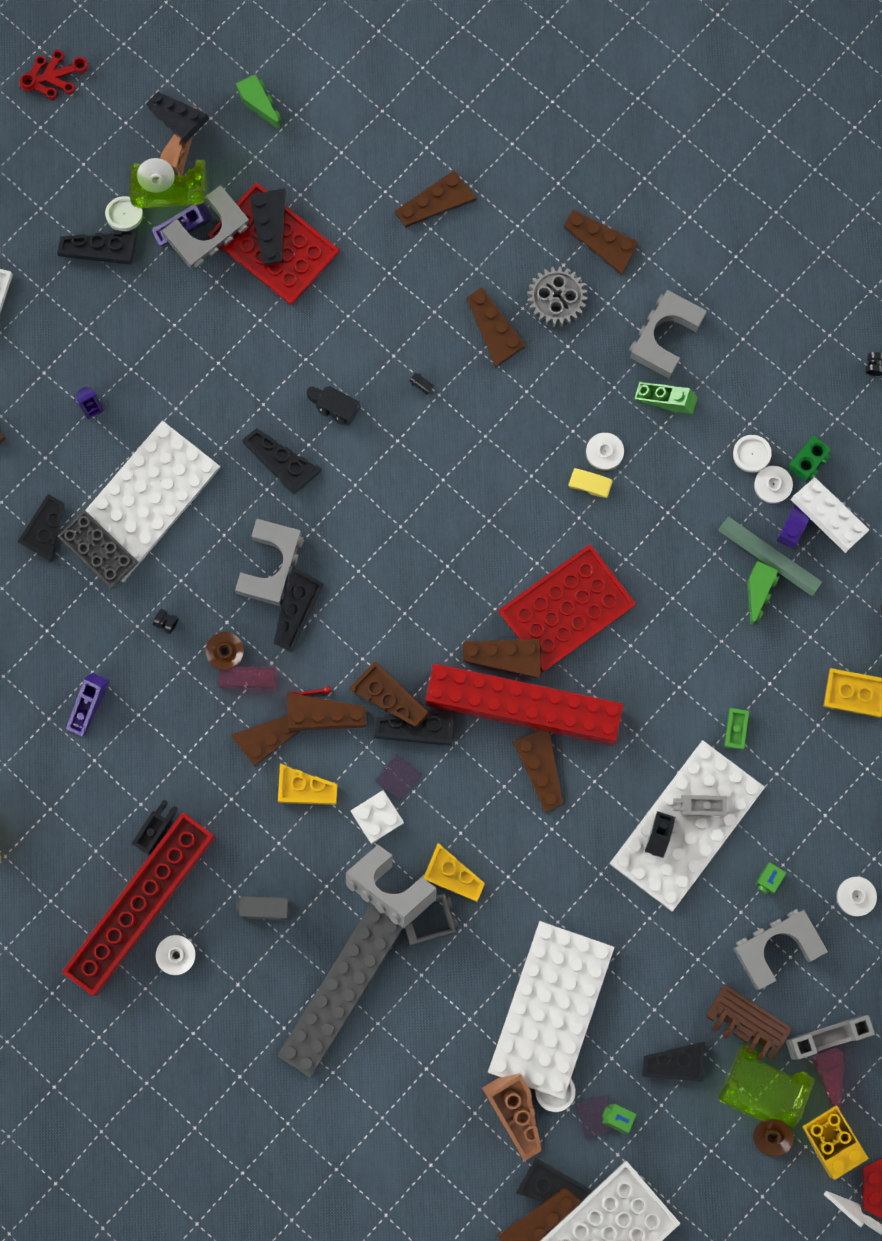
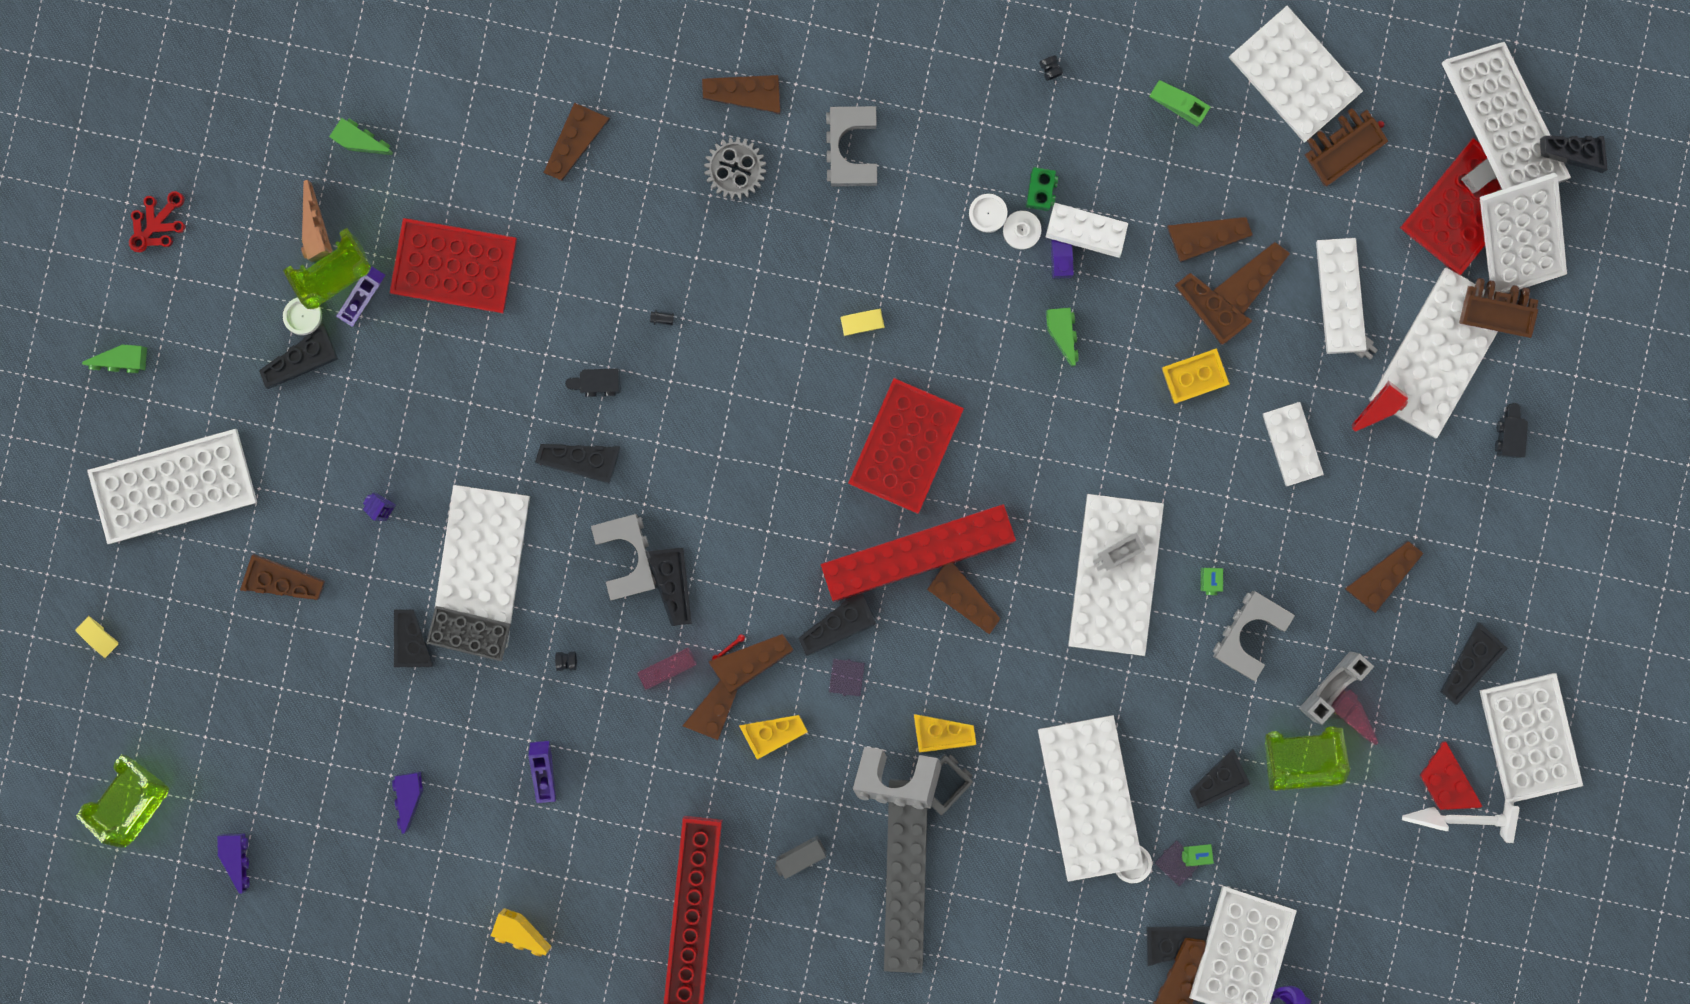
camera: 30 degrees left, 10 degrees up
(154, 829) = (666, 845): black hinge -> none
(155, 168) = (311, 267): white dish -> none
(165, 953) = (746, 948): white dish -> none
(177, 116) = (296, 199): black wing -> none
(194, 250) = (389, 316): light grey arch -> none
(217, 644) = (622, 656): reddish brown dish -> none
(268, 216) = (437, 248): black wing -> none
(377, 817) = (848, 722): white plate -> none
(388, 694) = (797, 612): reddish brown wing -> none
(496, 331) = (698, 230): reddish brown wing -> none
(508, 655) = (883, 516): reddish brown wing -> none
(514, 1108) = (1104, 896): nougat wedge -> none
(596, 451) = (858, 294): white piece -> none
(660, 834) = (1098, 598): black slope -> none
(667, 397) = (884, 205): bright green slope -> none
(736, 728) = (1111, 467): bright green plate -> none
(749, 1022) = (1262, 712): reddish brown hinge -> none
(770, 556) = (1055, 297): sand green tile -> none
(770, 1144) = (1335, 801): reddish brown dish -> none
(834, 1143) = (1388, 771): yellow slope -> none
(856, 905) = (1283, 551): white piece -> none

